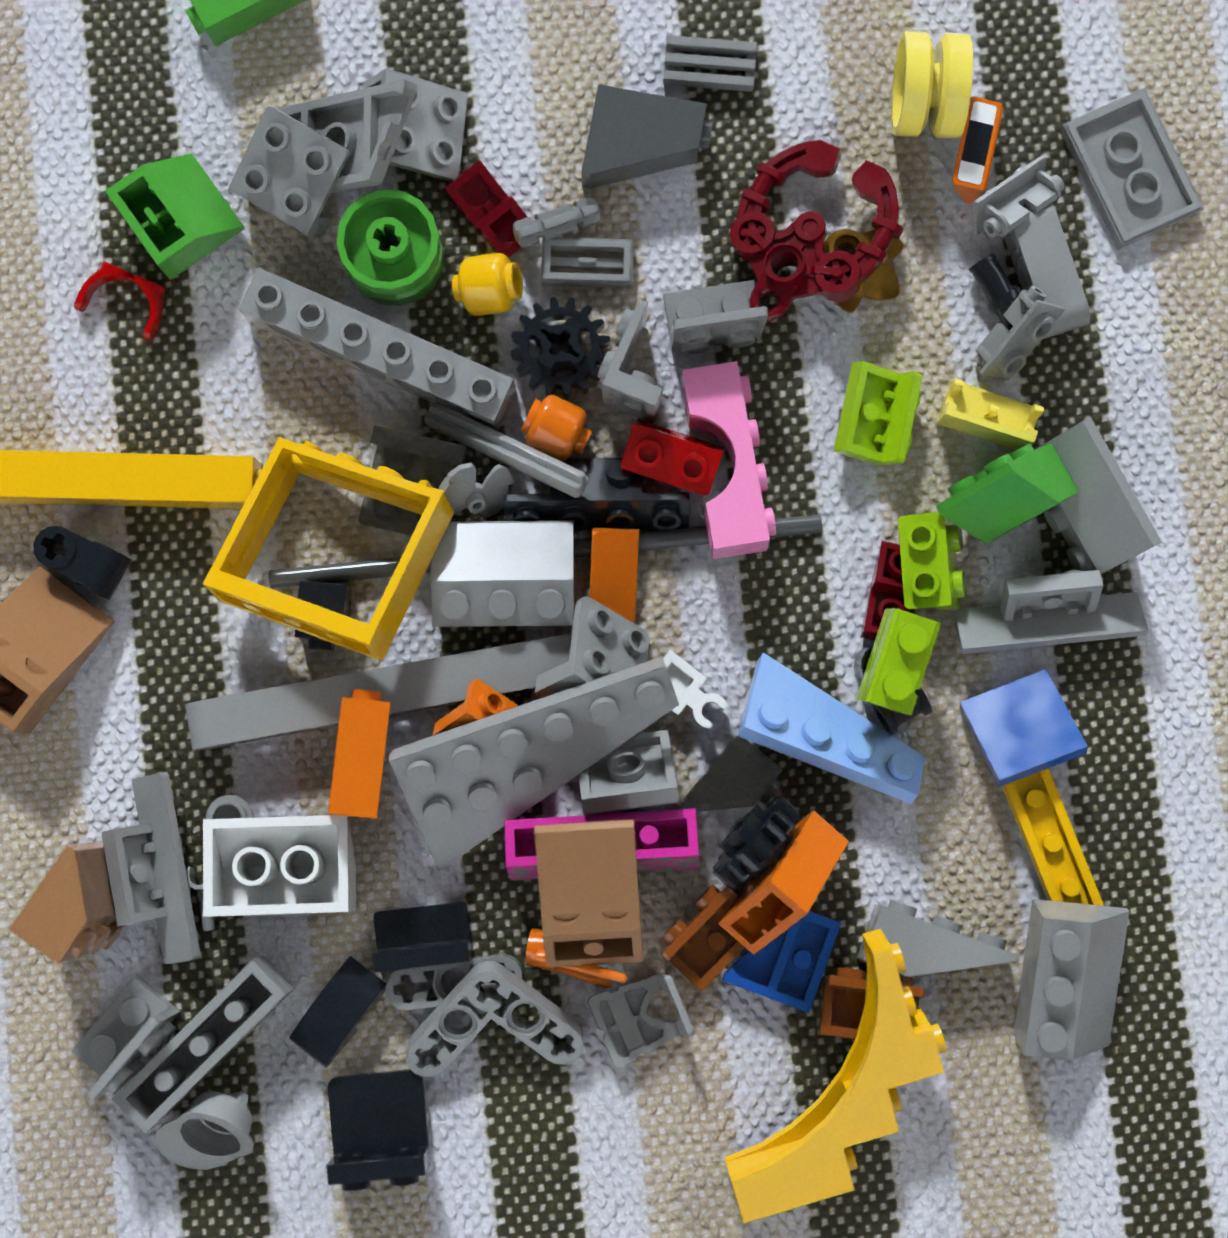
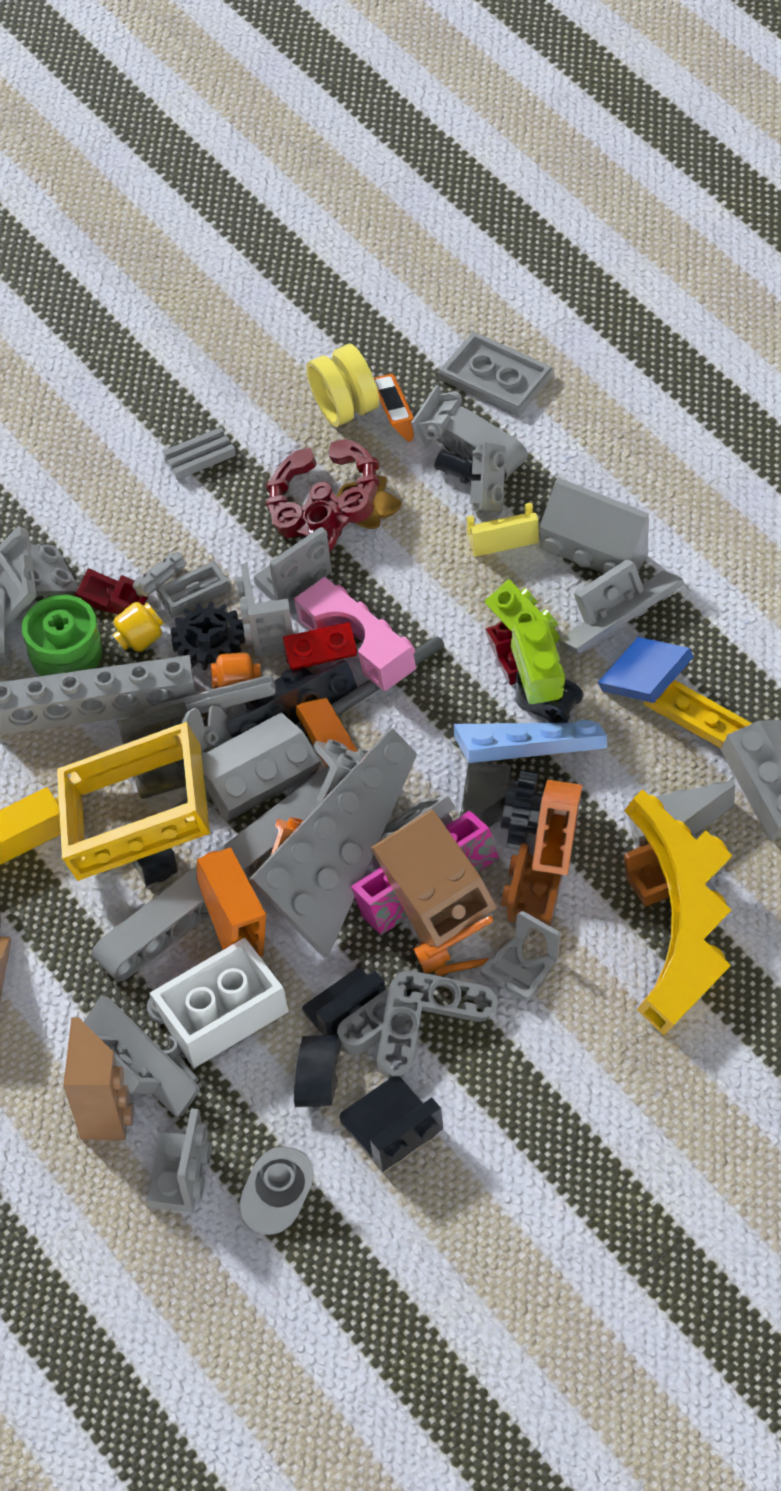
camera: 25 degrees left, 30 degrees down
(203, 1043) = (237, 1132): light grey brick -> none
(641, 135) = (182, 505): dark grey slope -> none
(686, 685) = (425, 770): white plate -> none
(790, 964) = (594, 876): blue wing -> none
(878, 414) = (433, 564): lime bracket -> none
(1008, 492) = (541, 549): bright green slope -> none

